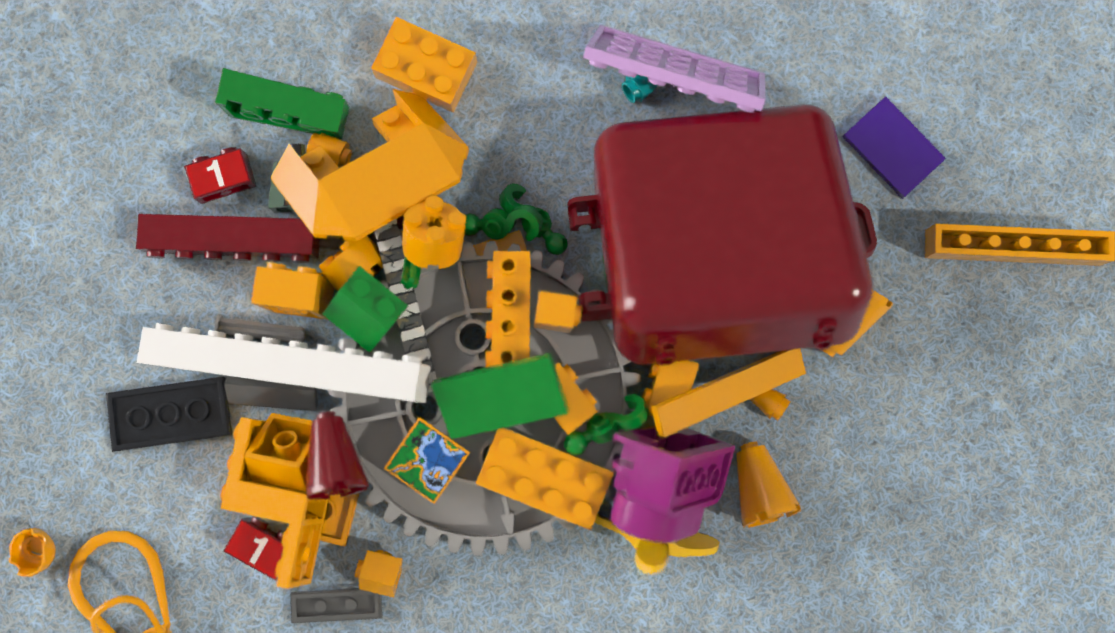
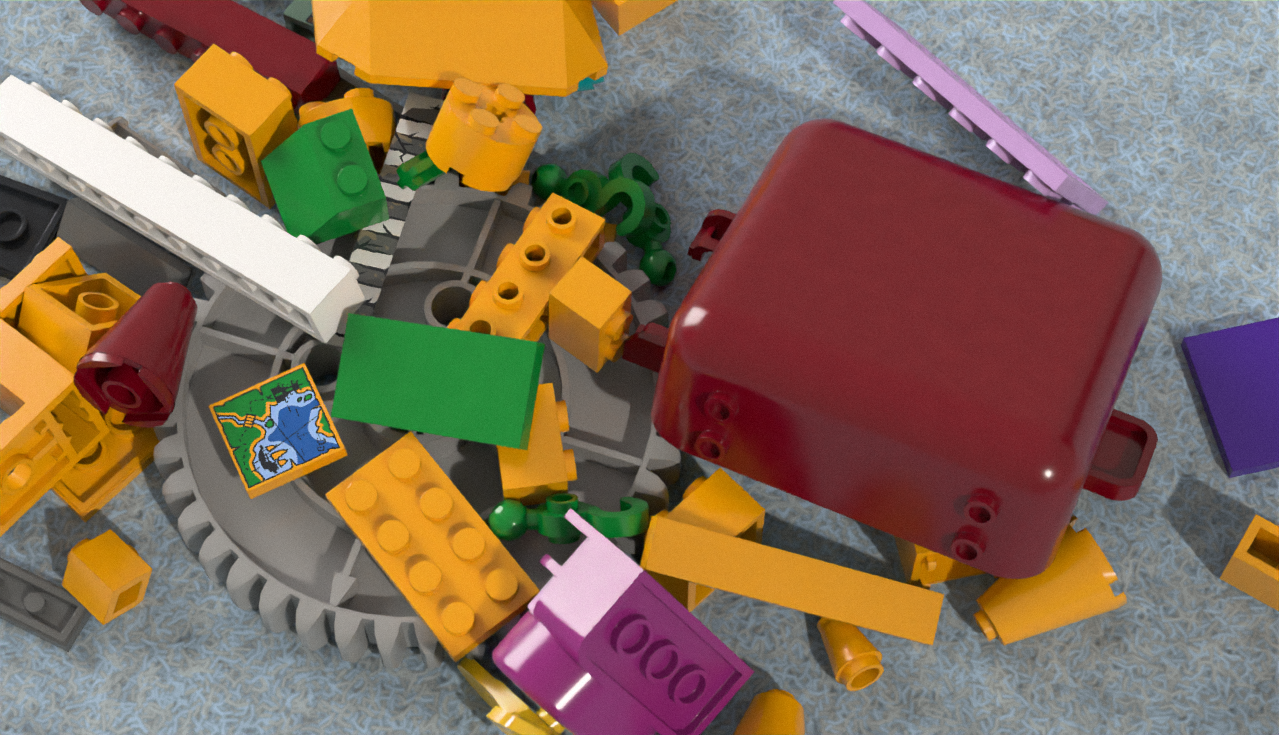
camera: 30 degrees right, 20 degrees down
(637, 88) = (915, 123): teal cone -> none

